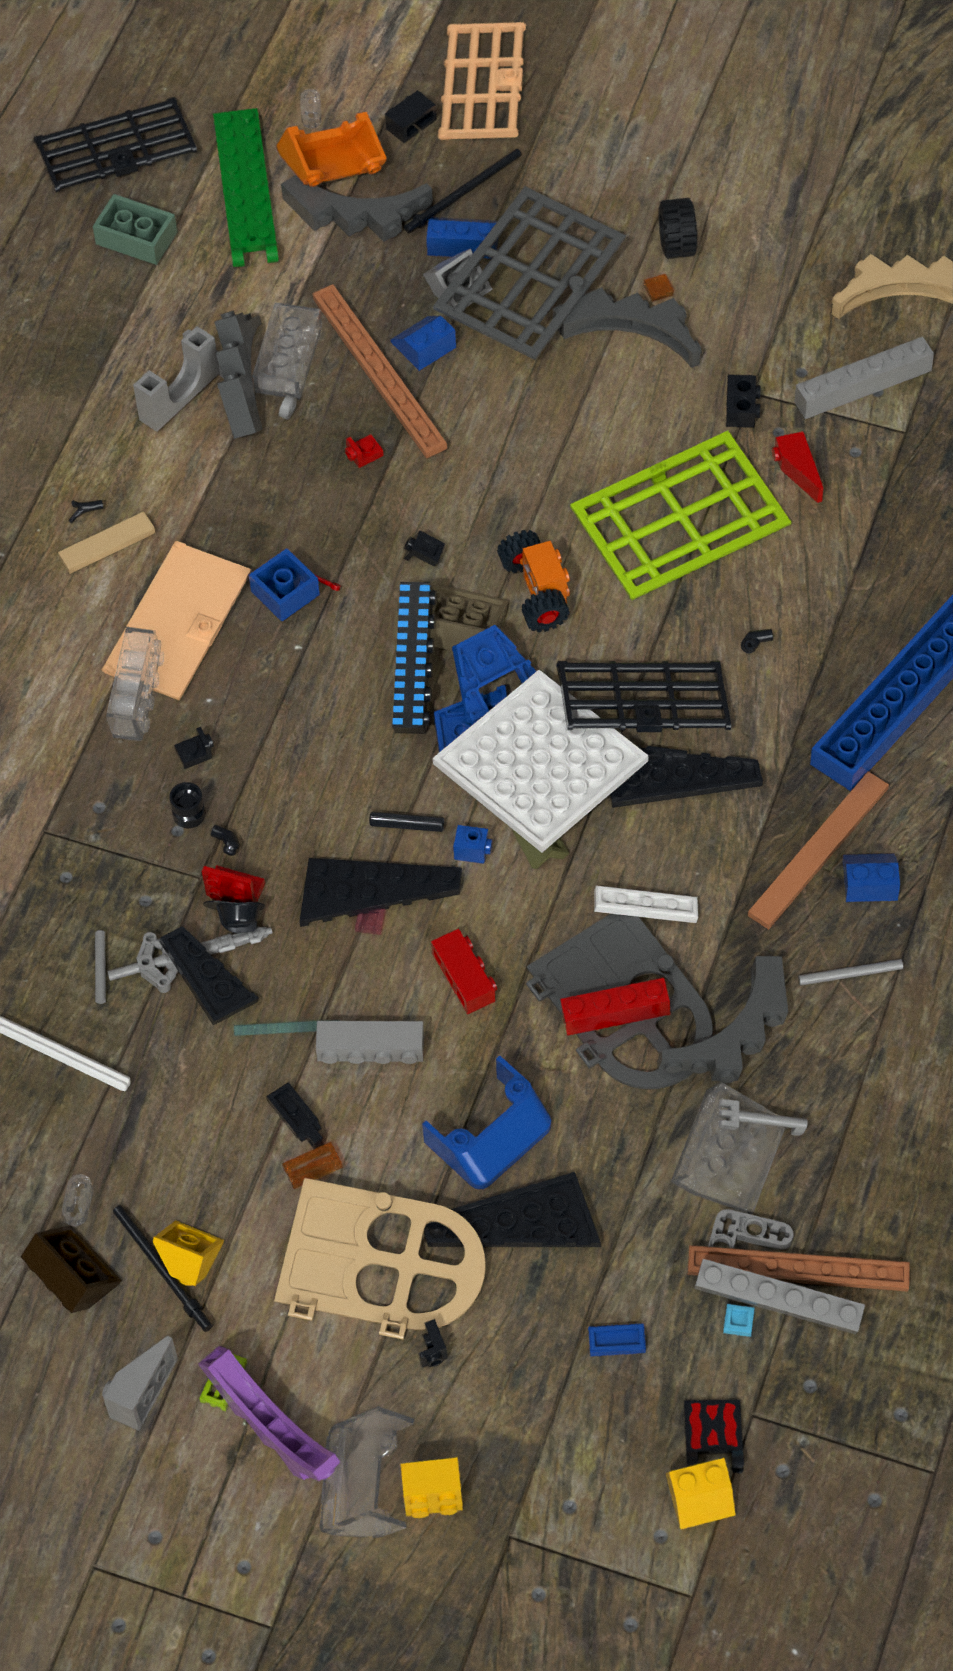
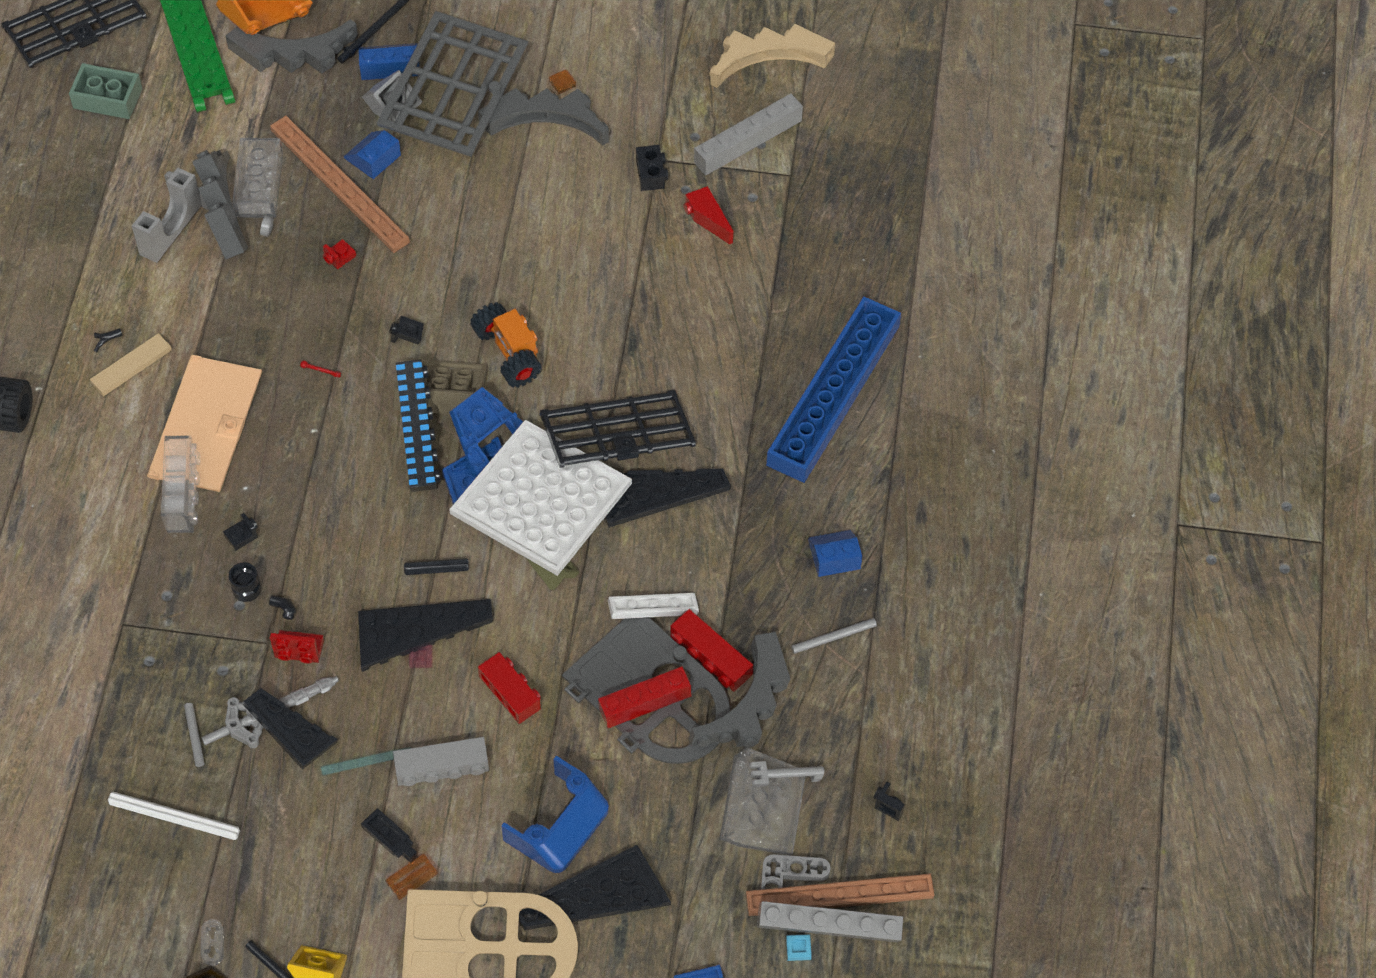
camera: 15 degrees left, 0 degrees up
(237, 916) = (306, 672): black piece -> none
(284, 584) = (293, 379): blue brick -> none
(472, 844) = (496, 577): blue brick -> none
(662, 486) = (597, 248): lime door -> none
(678, 228) = (570, 29): black tyre -> none
(703, 966) = (711, 650): none -> red brick
(754, 638) = (699, 366): black arm -> none
(818, 850) = (787, 537): nougat tile -> none
(874, 1175) = (888, 804): none -> black bracket

